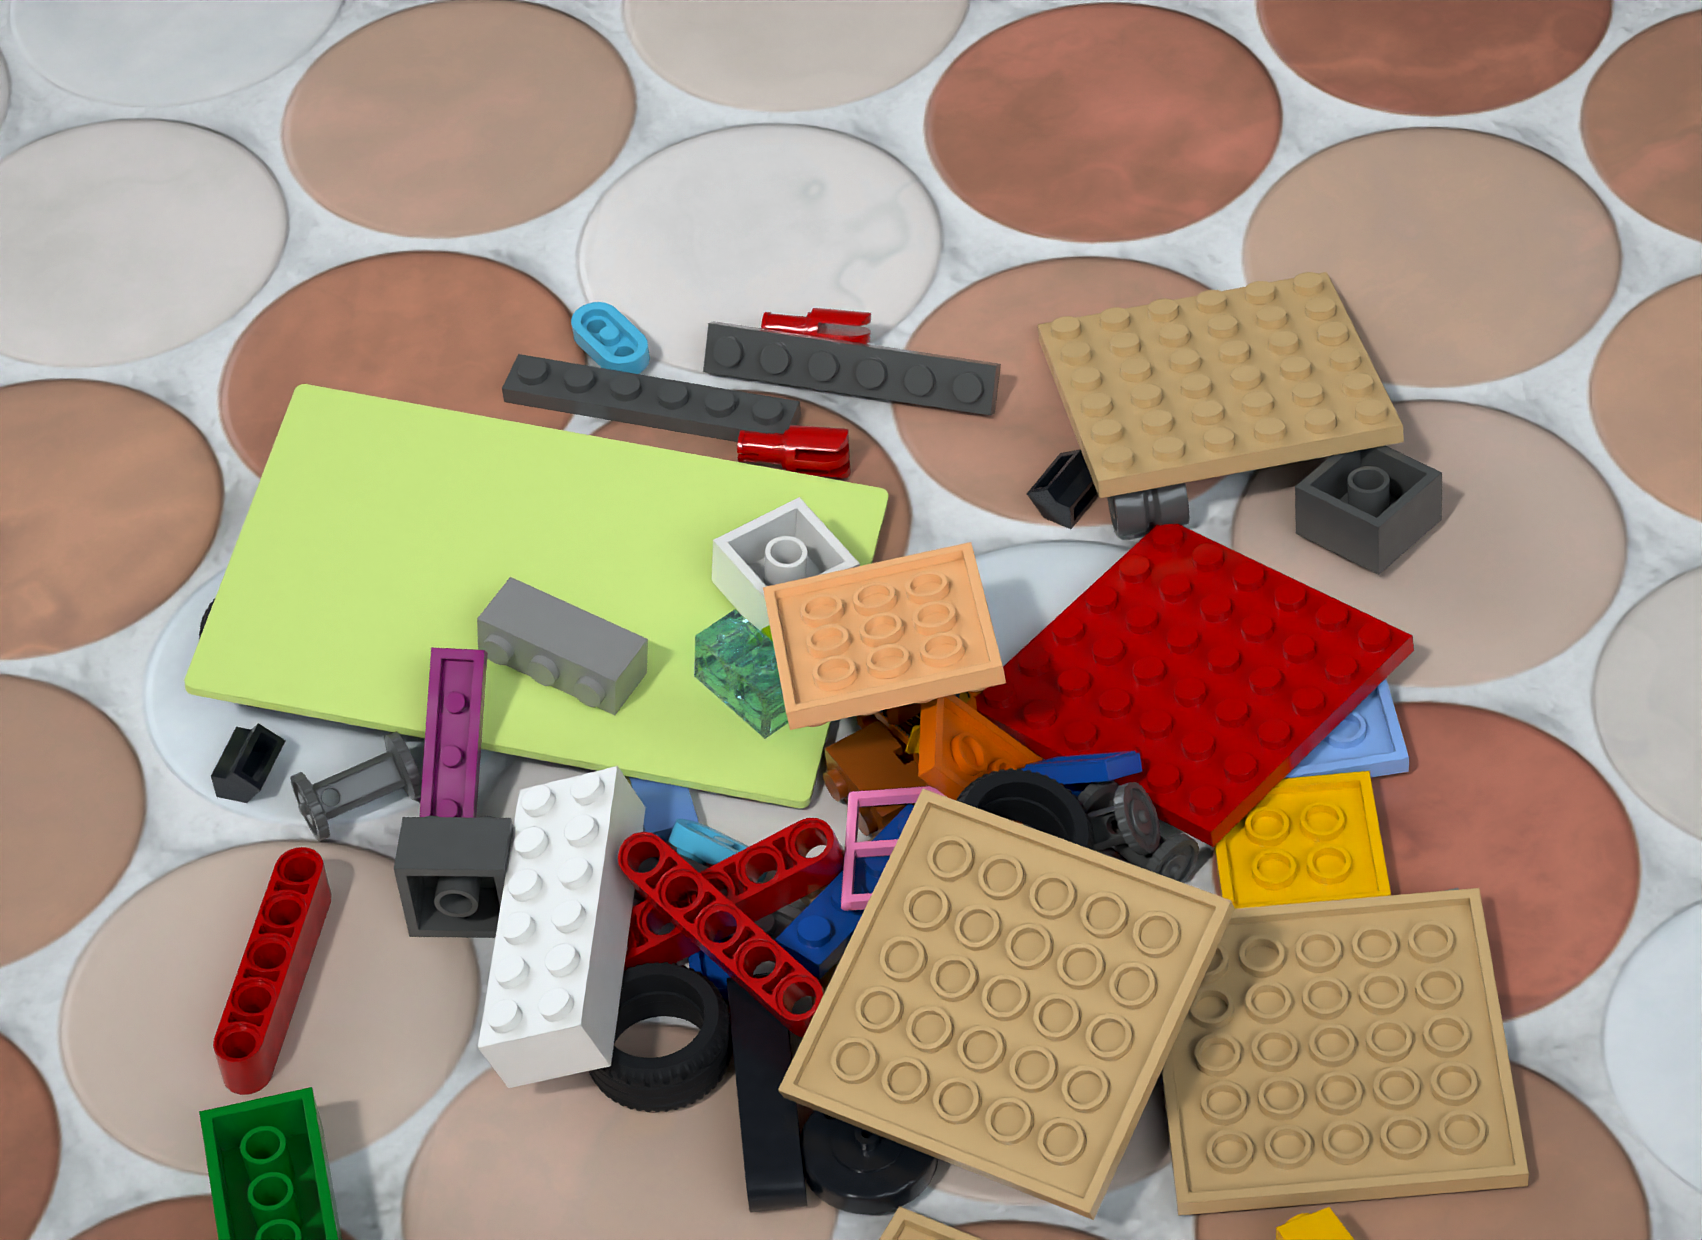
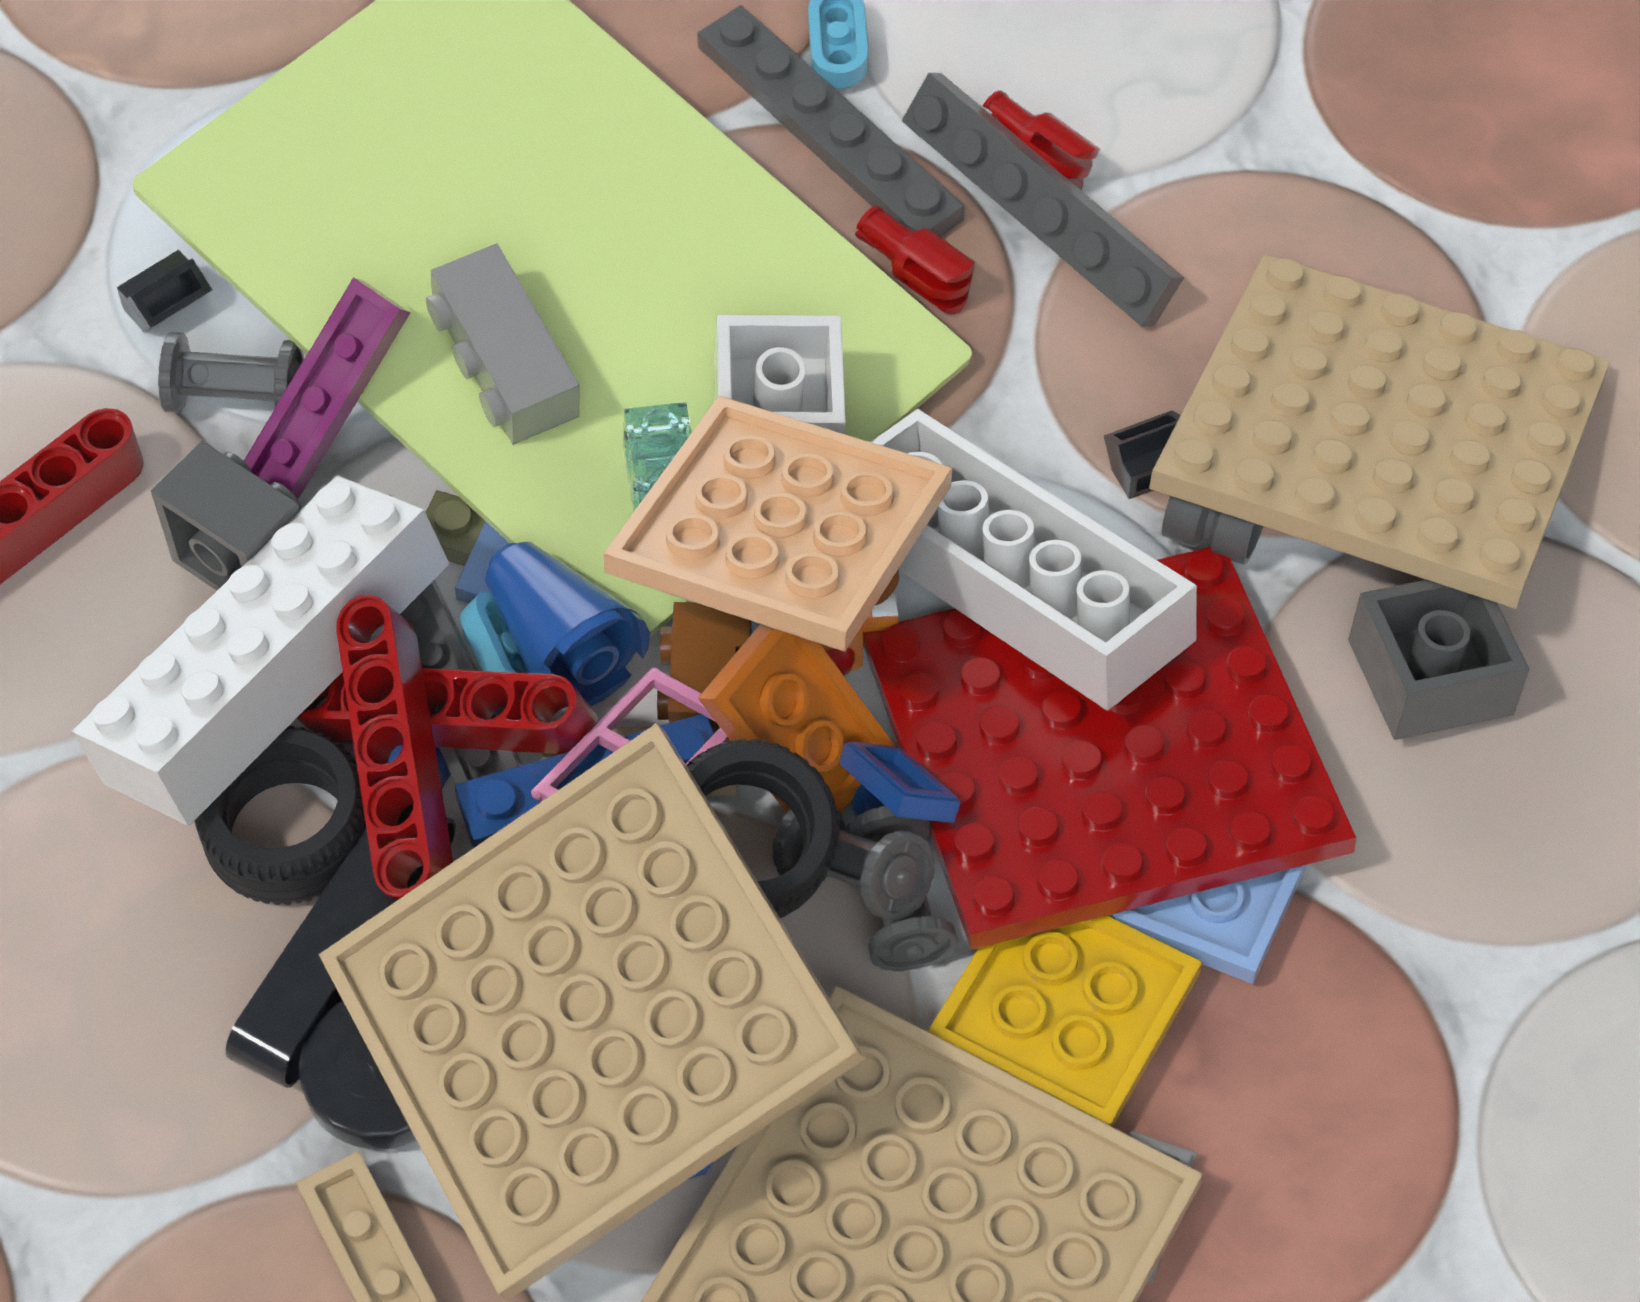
camera: 30 degrees right, 10 degrees up
(747, 798) = (564, 621): none -> blue cone
(1084, 584) = (1043, 571): none -> white brick

